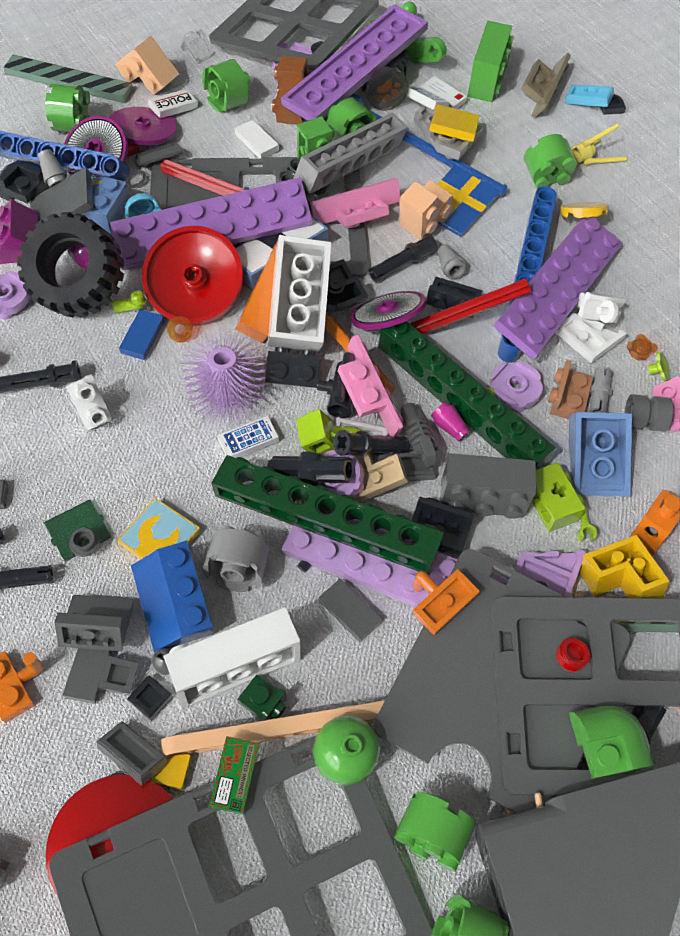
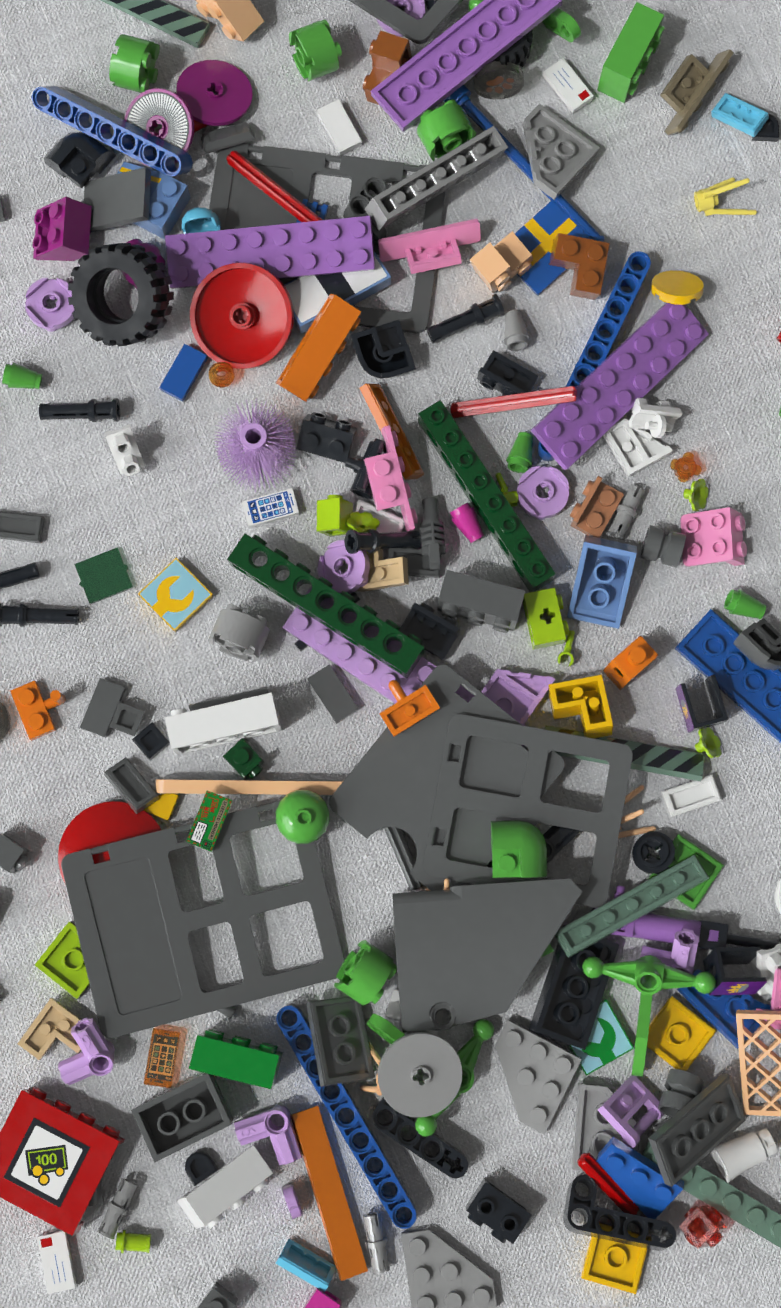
camera: 15 degrees right, 20 degrees up
(51, 168) = (110, 157): light grey cone -> none
(81, 535) = (103, 586): dark grey plate -> none
(94, 623) = (112, 669): dark grey bracket -> none
(136, 302) = (179, 334): lime arm -> none
(159, 664) = (169, 705): dark grey hinge -> none
(171, 597) = (179, 658): blue slope -> none
(172, 103) = (252, 62): white tile -> none
(299, 293) = (342, 366): white brick -> none
(313, 135) = (397, 159): bright green brick -> none
(314, 468) = (320, 557): black piece -> none
(388, 310) = (432, 388): piece -> none
(426, 98) = (544, 95): white tile -> none
(435, 830) = (360, 891): bright green brick -> none
(454, 123) = (563, 145): yellow tile -> none
(472, 780) = (403, 856): none -> dark grey axle
(485, 357) = (521, 453): none -> bright green cone
(498, 198) = (587, 260): none -> dark orange brick
(550, 161) = (658, 216): bright green brick -> none
(573, 654) = (507, 774): red tile -> none

